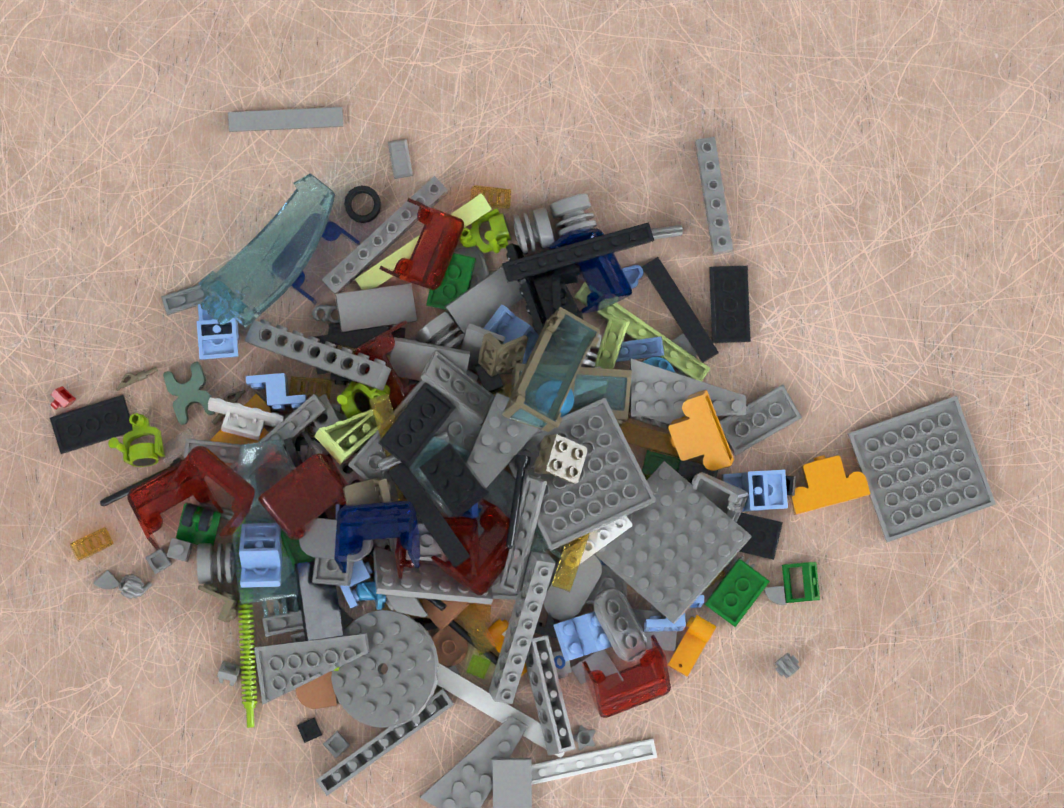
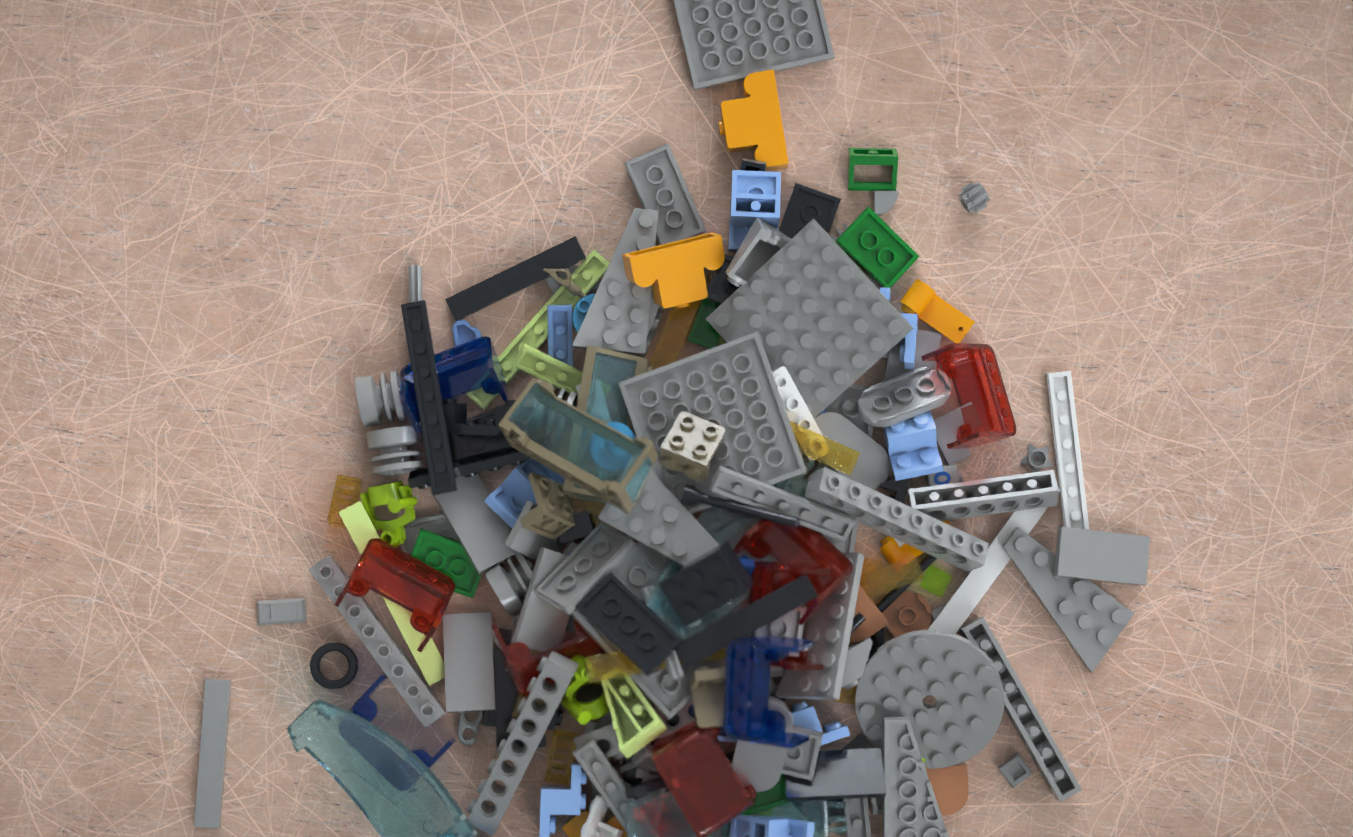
camera: 90 degrees left, 0 degrees up
(309, 730) = (993, 802): black tile -> none
(367, 591) = (830, 710): dark azure plate -> none
(678, 353) = (567, 283): none -> dark tan hand
(713, 196) = (376, 220): light grey brick -> none
(729, 304) = (515, 216): black plate -> none

